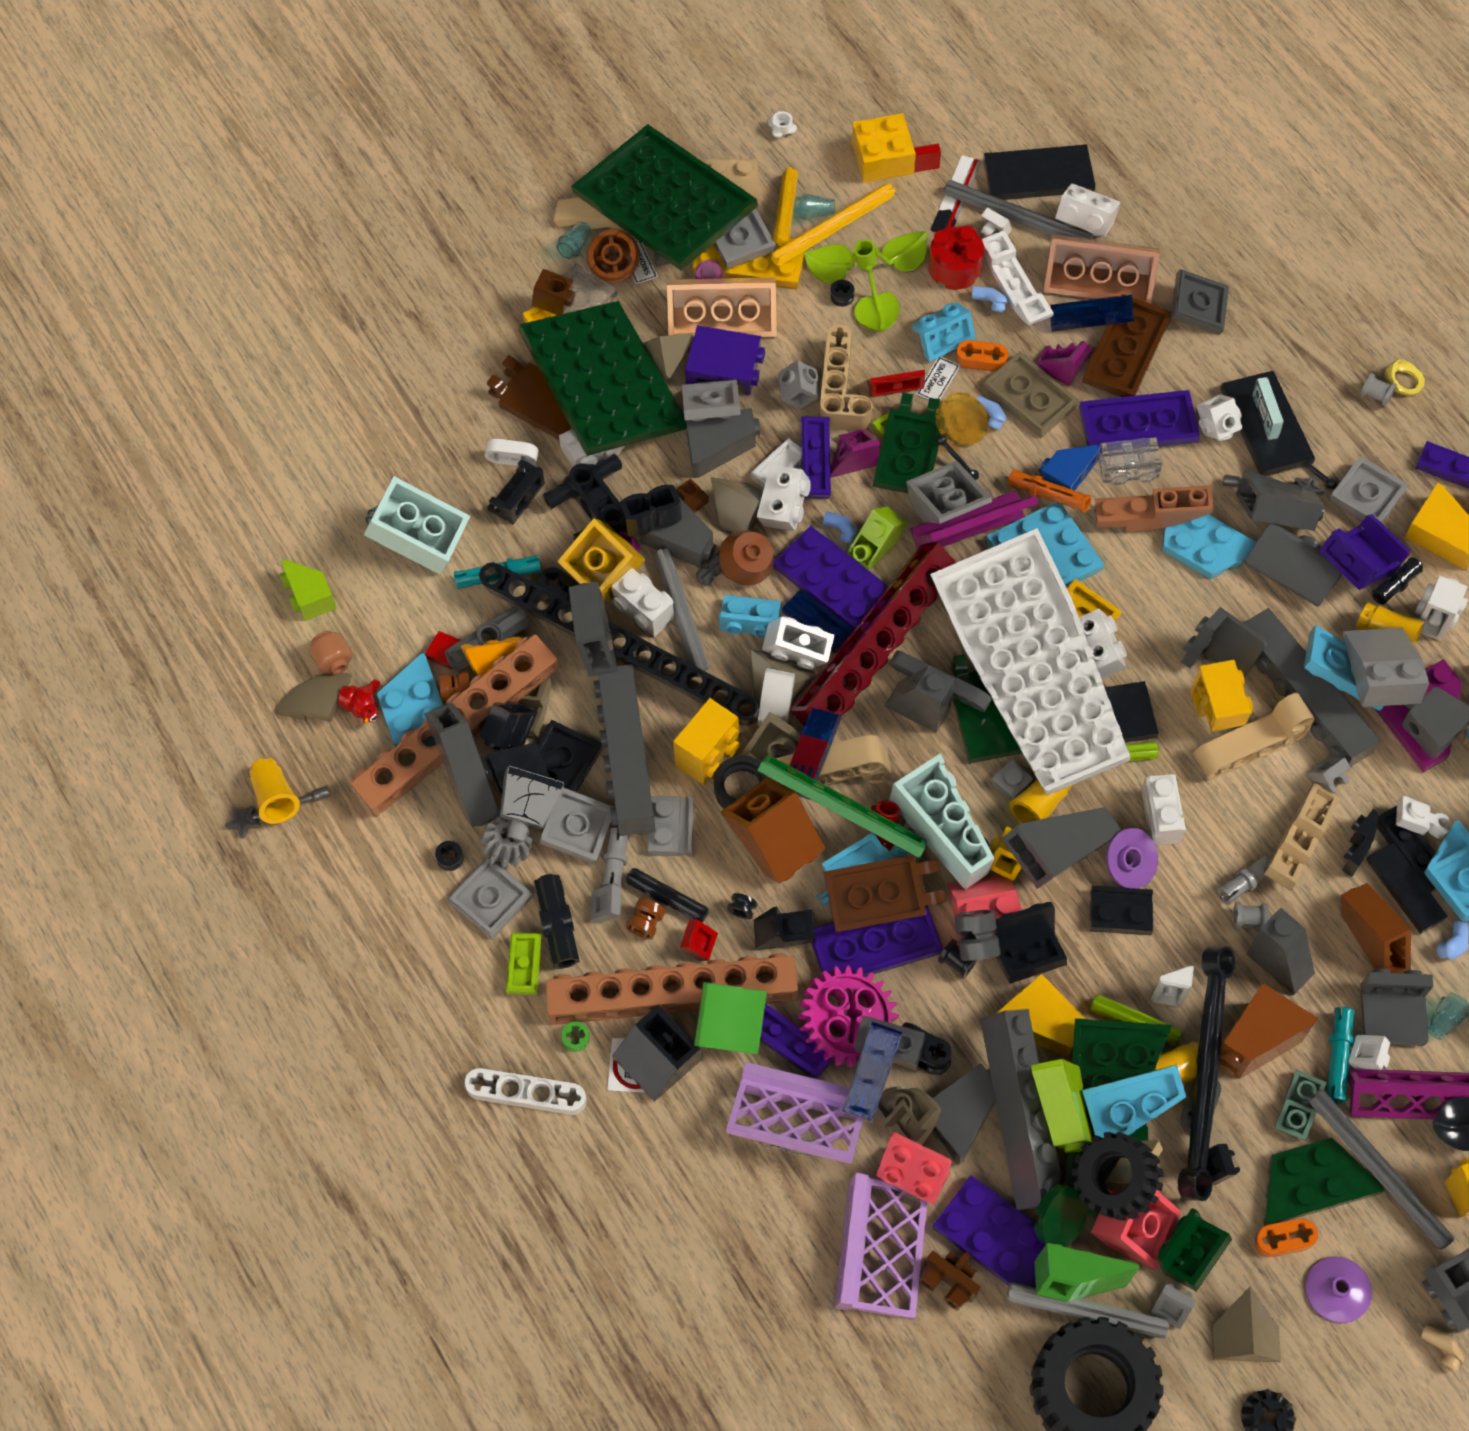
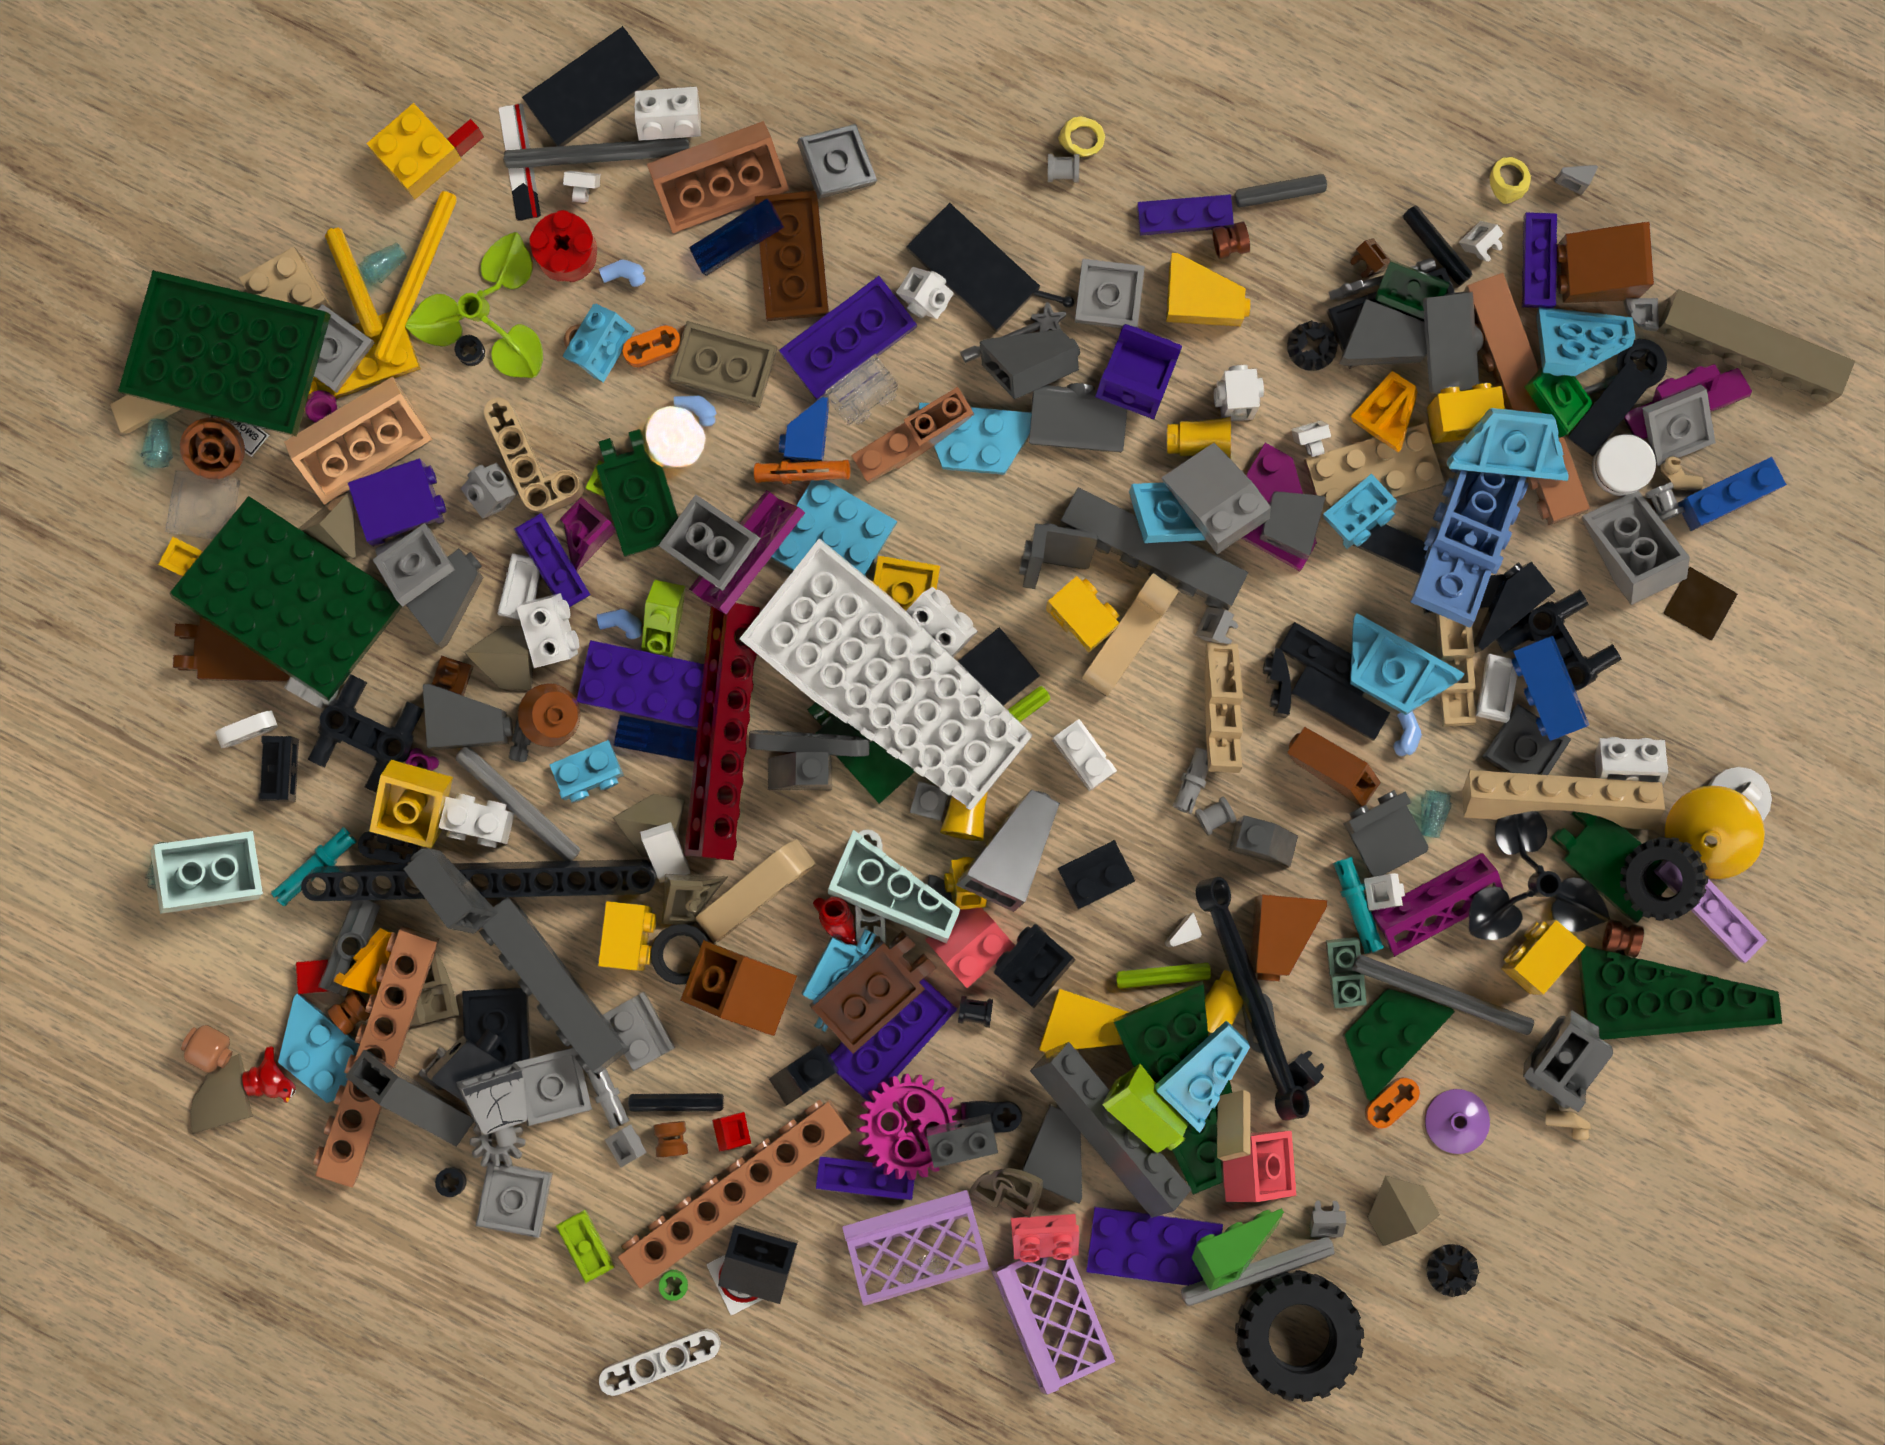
camera: 30 degrees left, 20 degrees up
(248, 818) = (236, 1256): flat silver piece -> none
(273, 794) = (244, 1221): yellow plant -> none
(309, 588) = (141, 994): lime slope -> none
(507, 725) = (429, 1032): black brick -> none
(553, 292) = (166, 519): reddish brown brick -> none
(556, 921) = (590, 1188): black piece -> none
(652, 510) = (424, 738): black brick -> none
(730, 1018) = (807, 1199): bright green slope -> none
(742, 906) = (751, 1074): black bush -> none
(782, 124) = (281, 175): white plate -> none
(797, 642) = (660, 780): white brick -> none
(815, 743) = (732, 896): tile -> none
(842, 805) = (792, 938): green tile -> none
(872, 1071) = (963, 1180): clear blue tile -> none
(896, 383) = (582, 427): red slope -> none
(938, 378) = (622, 397): white sticker -> none
(942, 441) = (715, 490): black hinge -> none
(962, 1286) = (1112, 1310): reddish brown hips -> none
(977, 935) = (985, 993): dark grey wheel -> none
(1013, 281) = (637, 239): white slope -> none
(1060, 1215) = (1194, 1208): dark green tile -> none
(1065, 362) = (736, 306): magenta slope -> none
(1093, 1167) = (1214, 1174): black tyre -> none
(1141, 856) = (1090, 821): medium lavender dish -> none
(1192, 1250) = (1319, 1164): dark green bracket -> none
(1267, 408) = (968, 258): light aqua tile -> none
(1397, 581) = (1182, 379): black pin -> none
(1417, 818) = (1318, 629): white plate -> none

